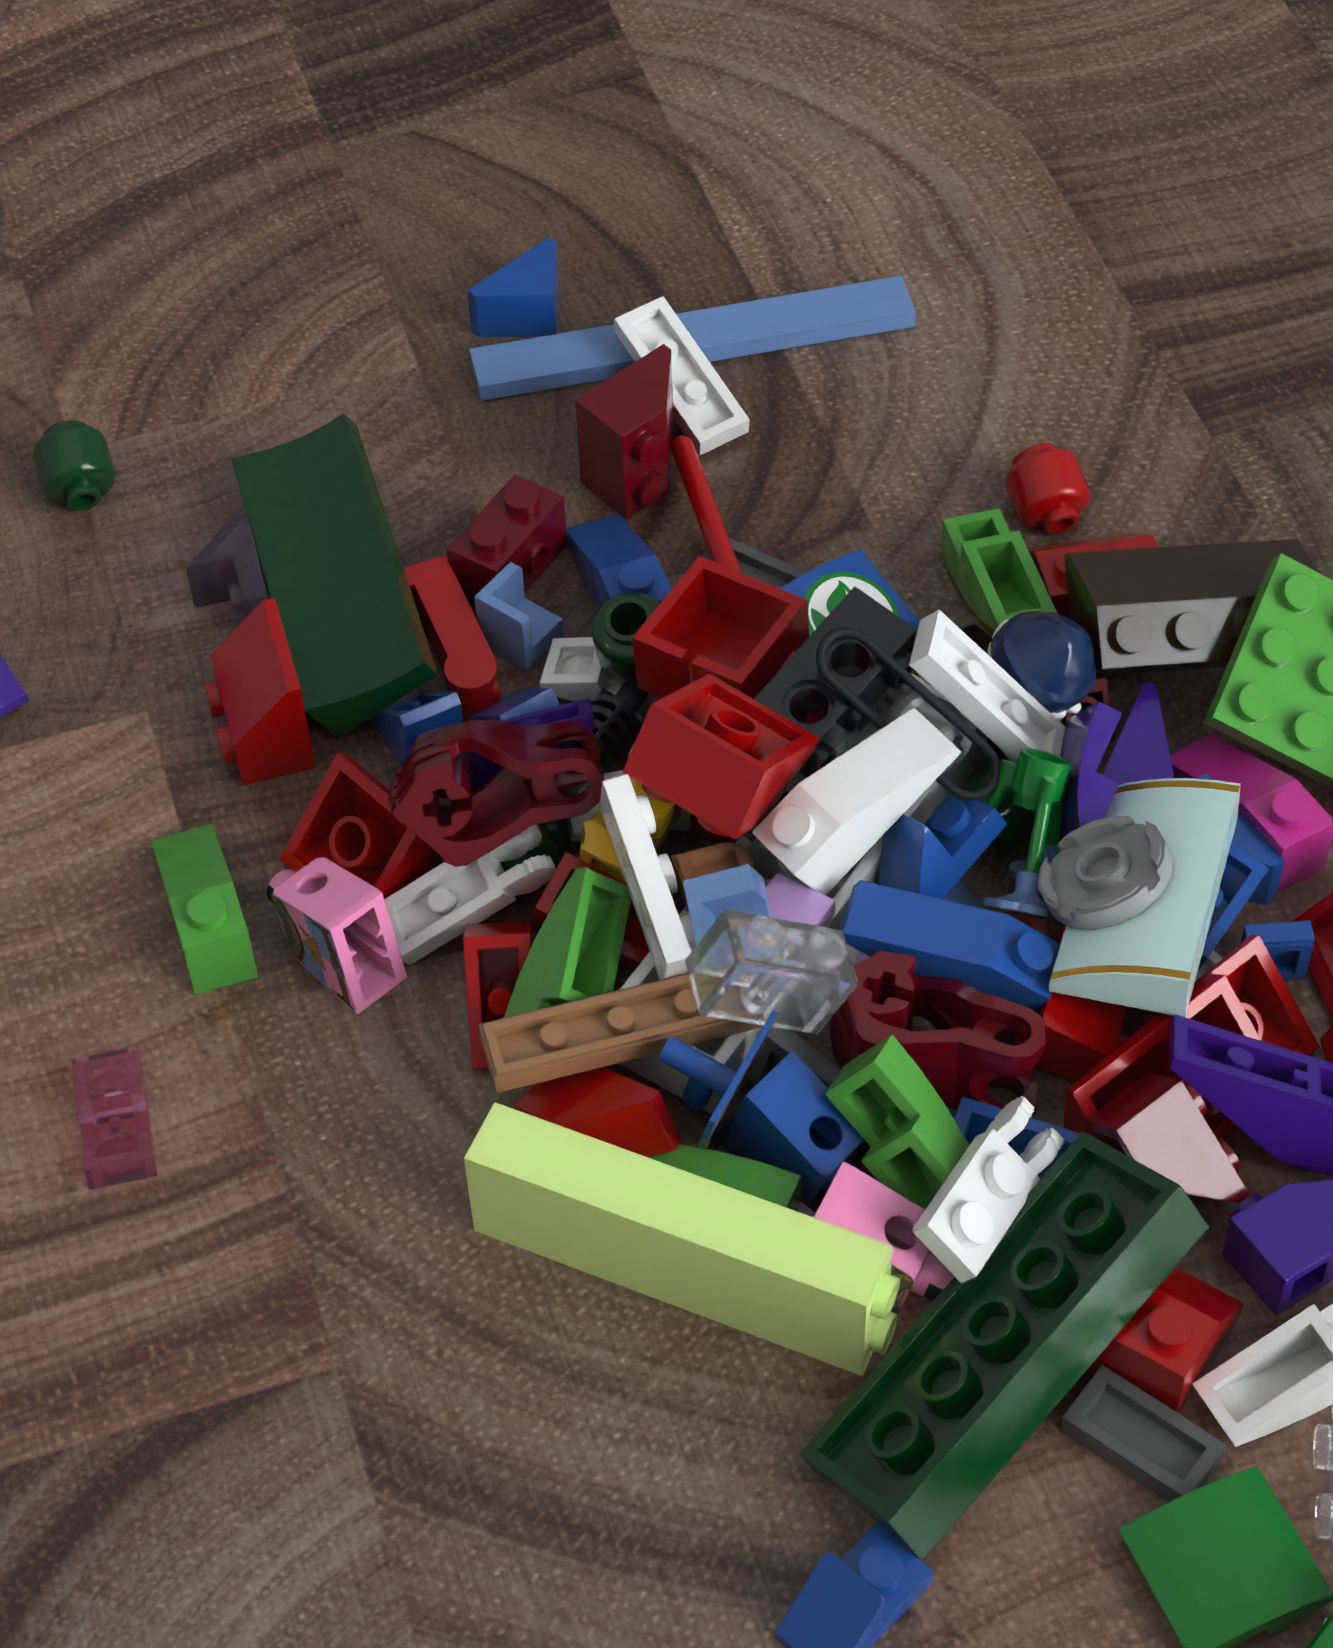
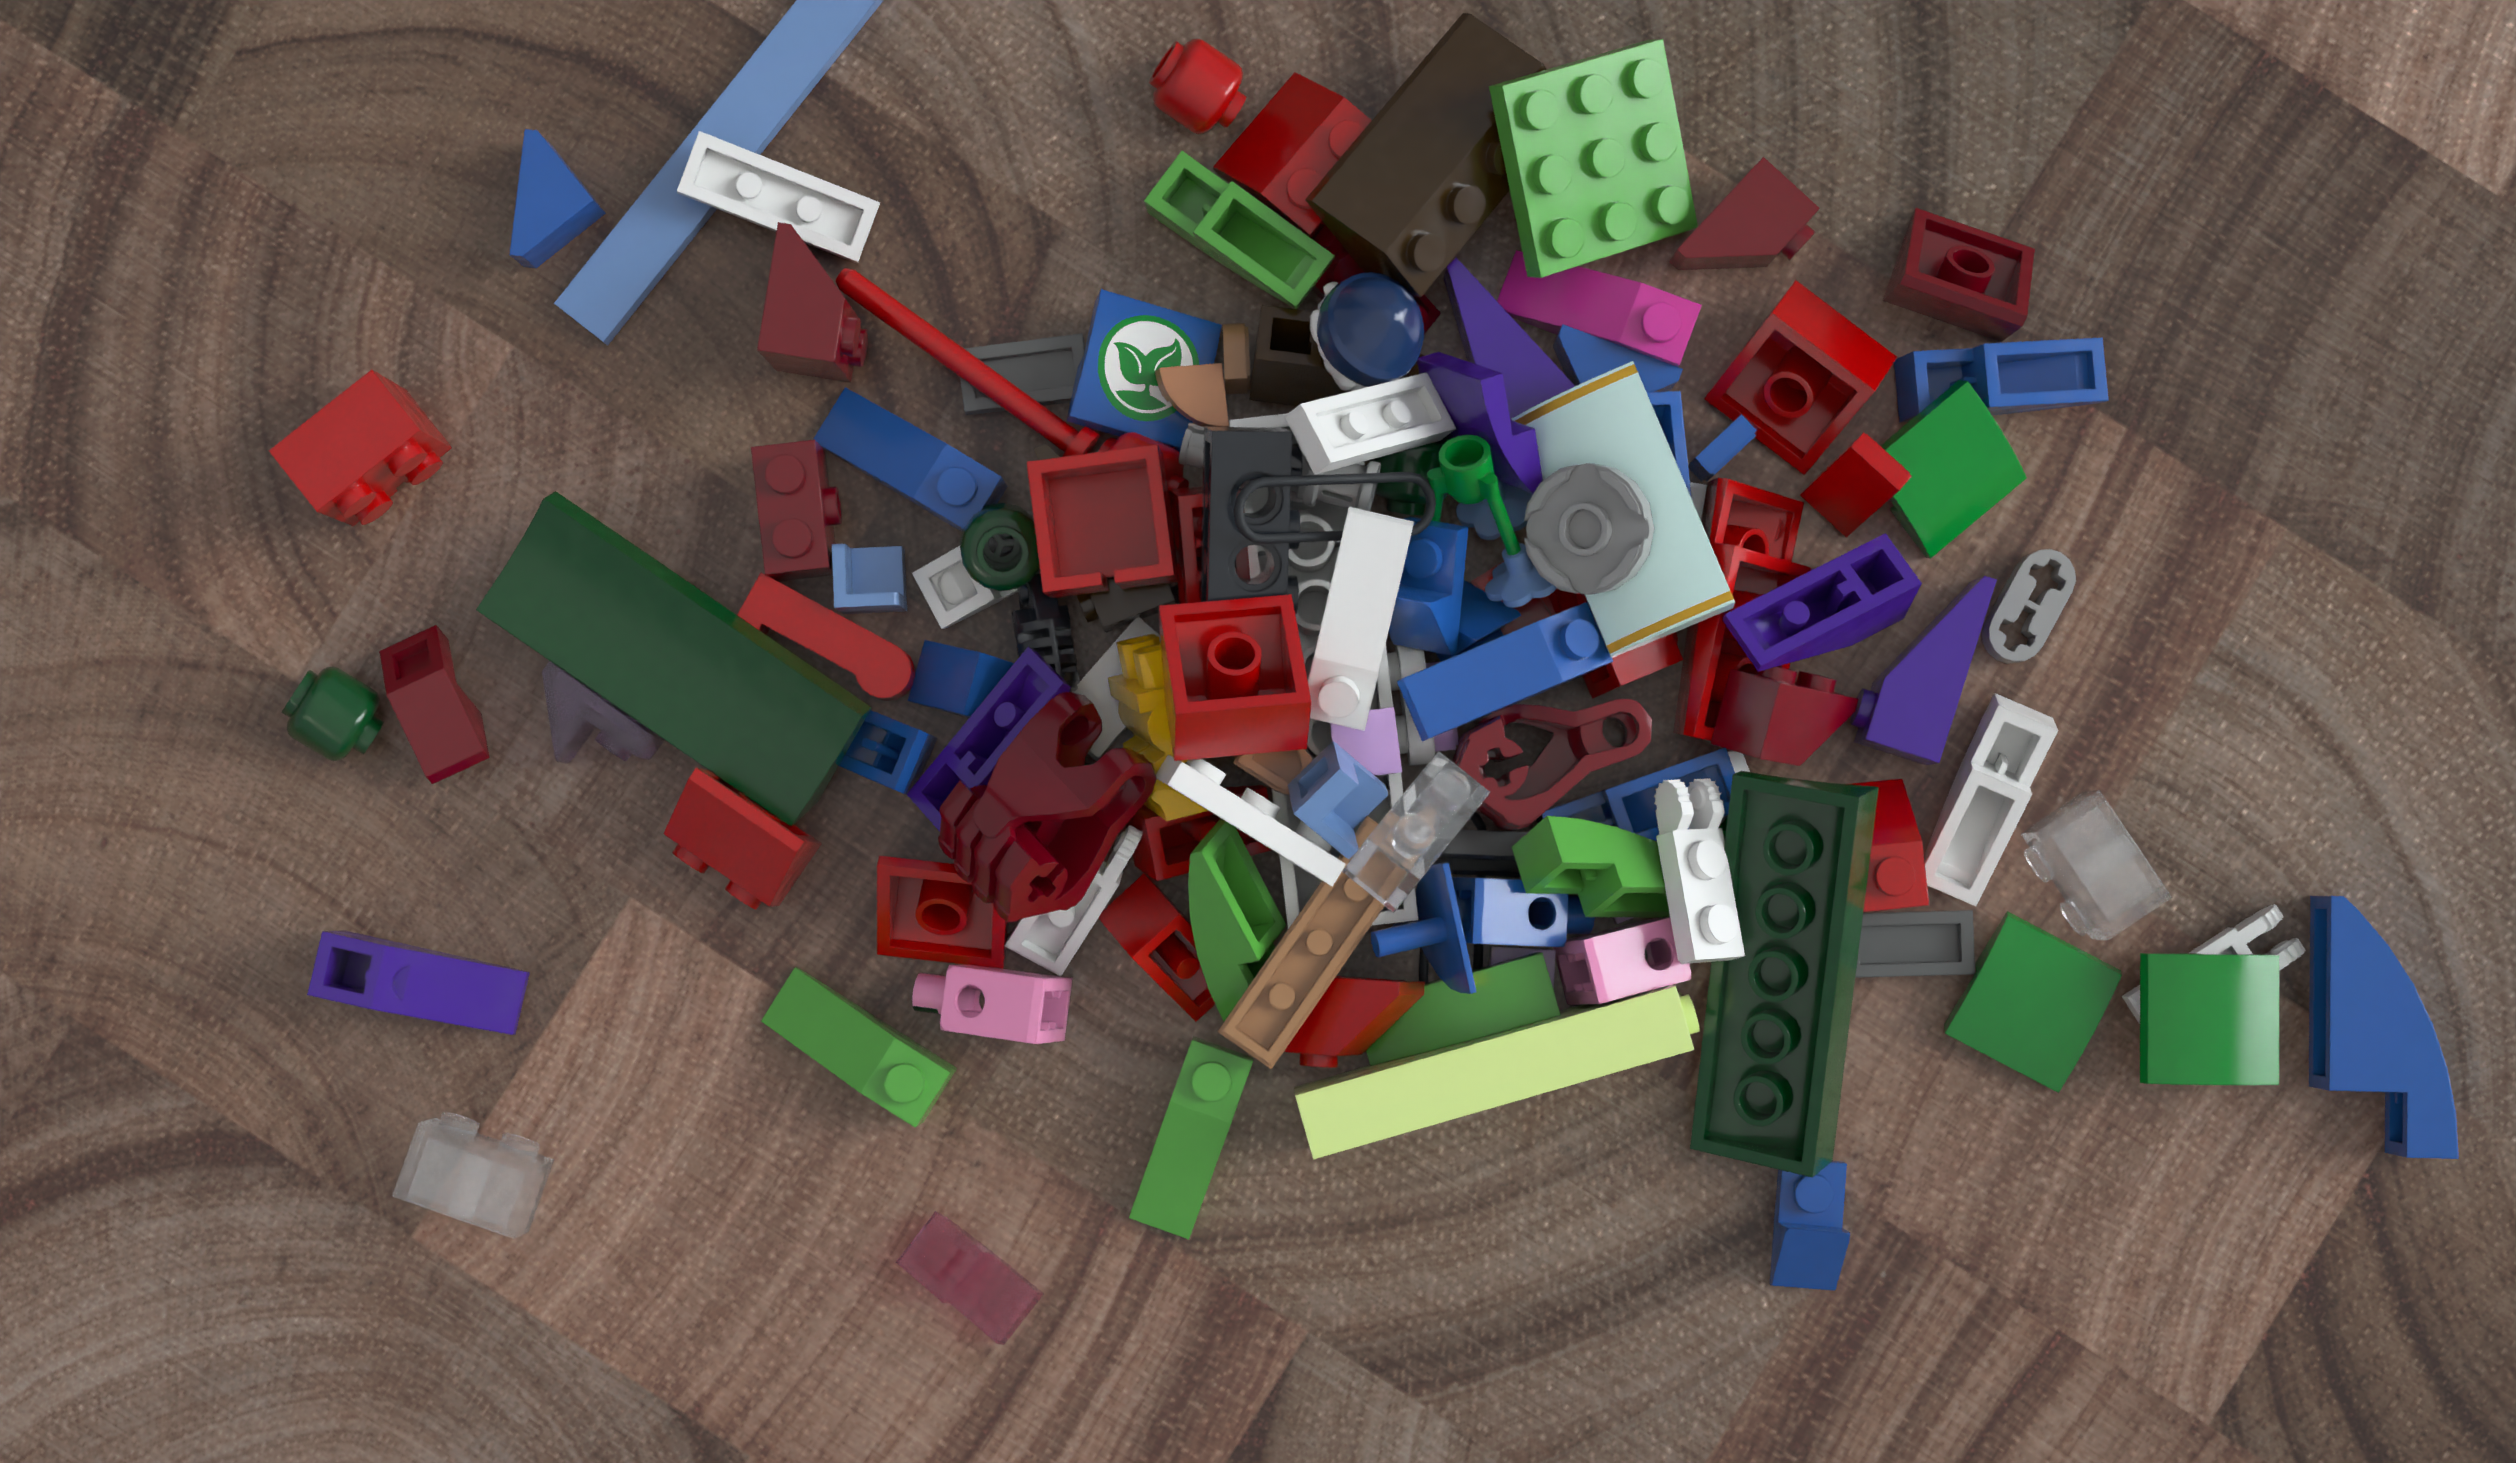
camera: 40 degrees left, 35 degrees up
(140, 505) = (431, 706): none -> dark red slope
(257, 328) = (362, 450): none -> red piece
(390, 1131) = (1191, 1137): none -> bright green slope

